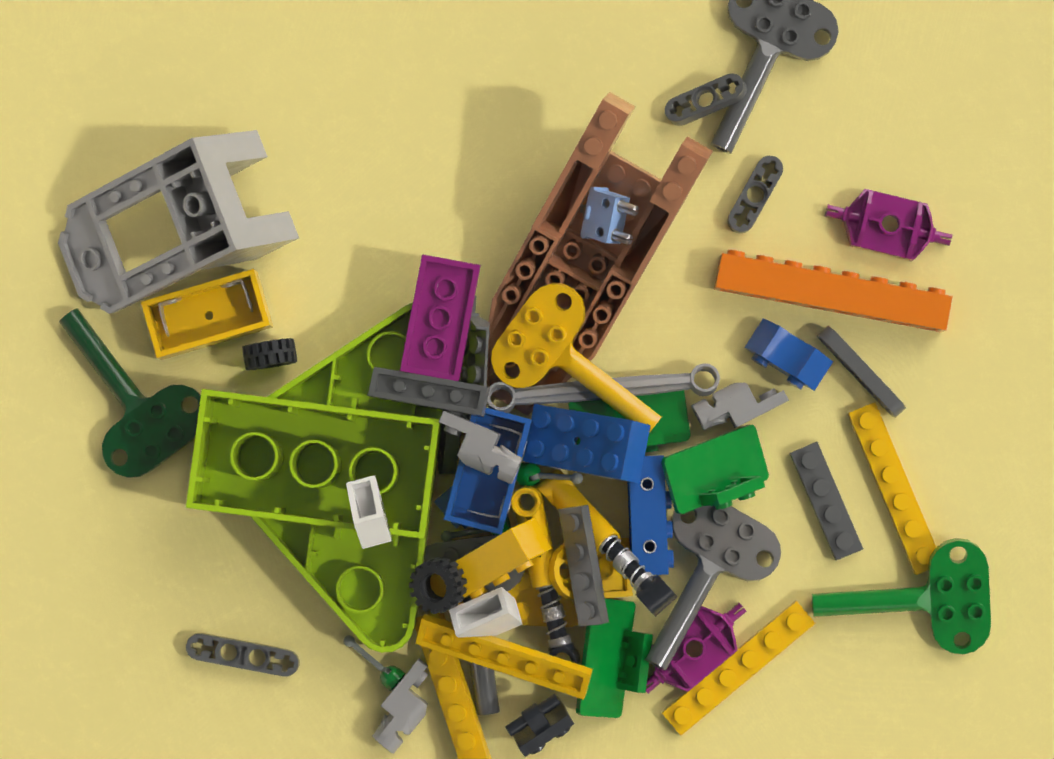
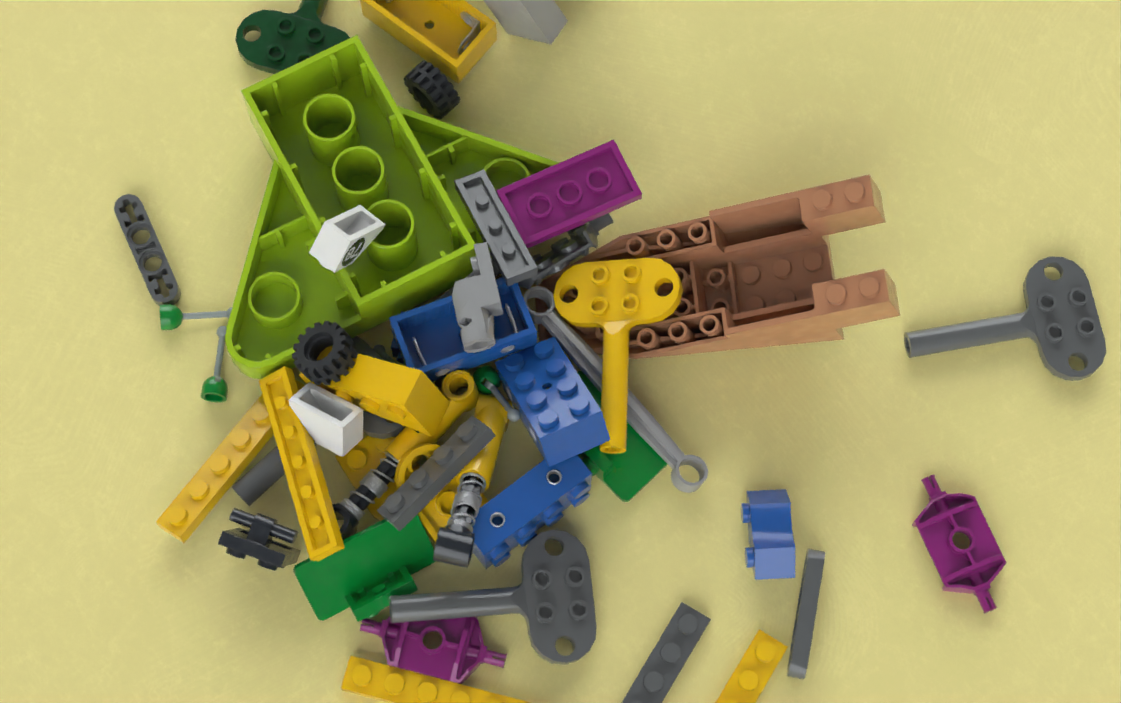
camera: 50 degrees right, 15 degrees down
(311, 670) = (172, 317): none -> green hinge
(404, 709) = (194, 417): light grey plate -> none
(606, 216) = (768, 275): light blue piece -> none
(716, 471) = (613, 536): green bracket -> none
(721, 83) = (944, 311): dark grey beam -> none
(737, 404) = (689, 522): light grey plate -> none
(772, 179) = (915, 410): dark grey beam -> none
(833, 292) = (859, 536): orange brick -> none

